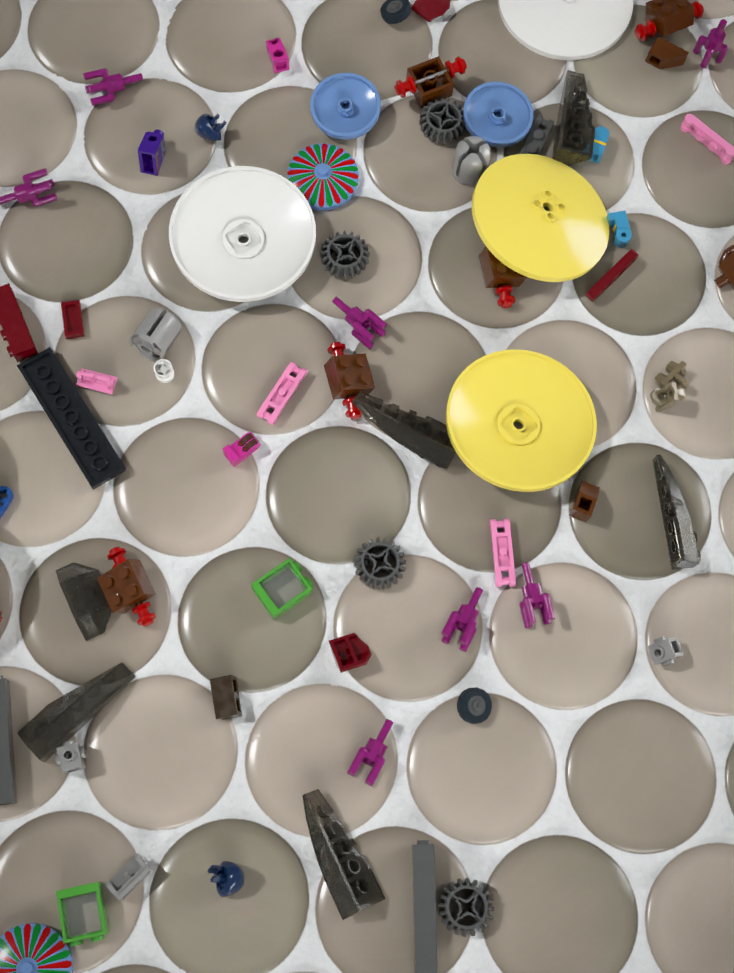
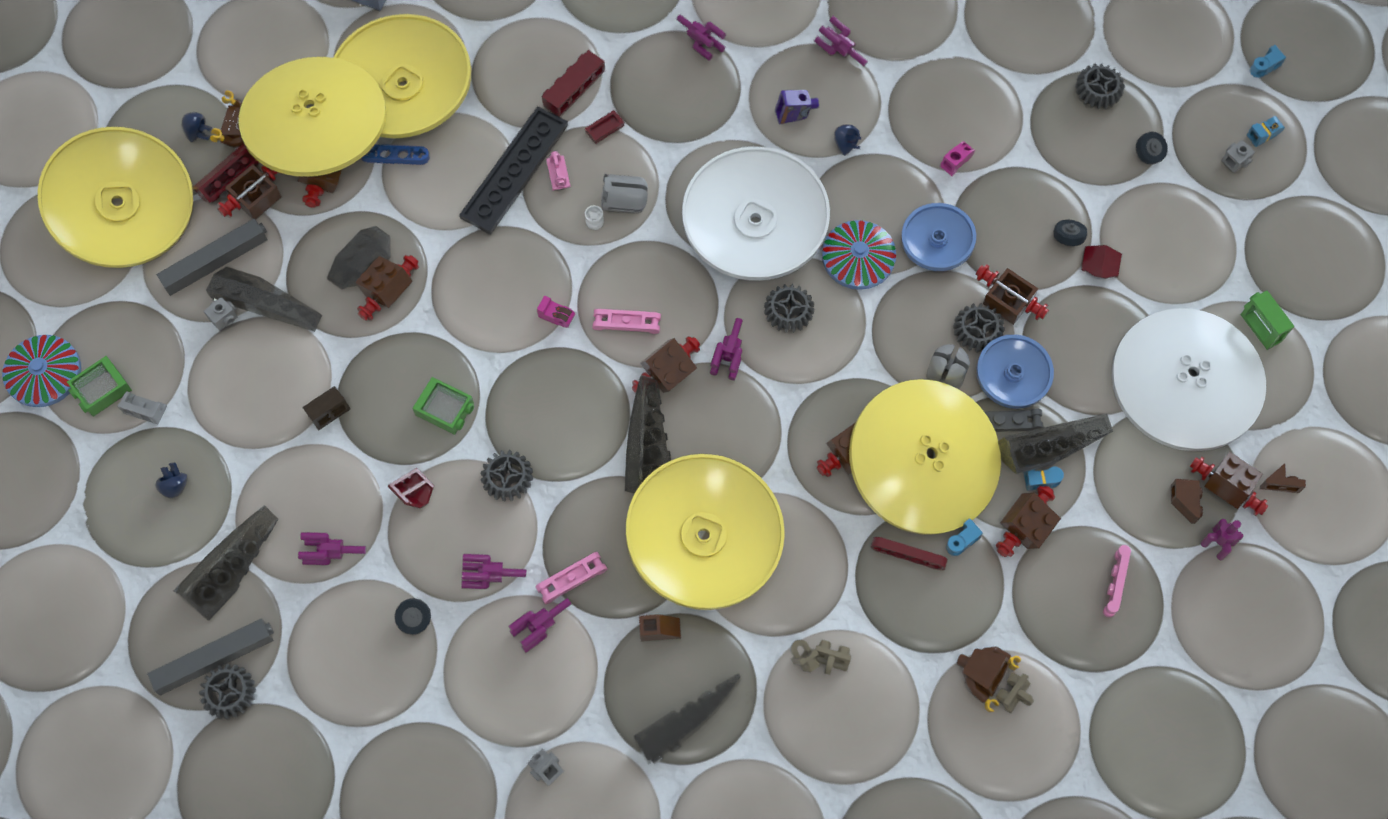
camera: 70 degrees right, 5 degrees down
(632, 173) = (1028, 521): none -> reddish brown brick

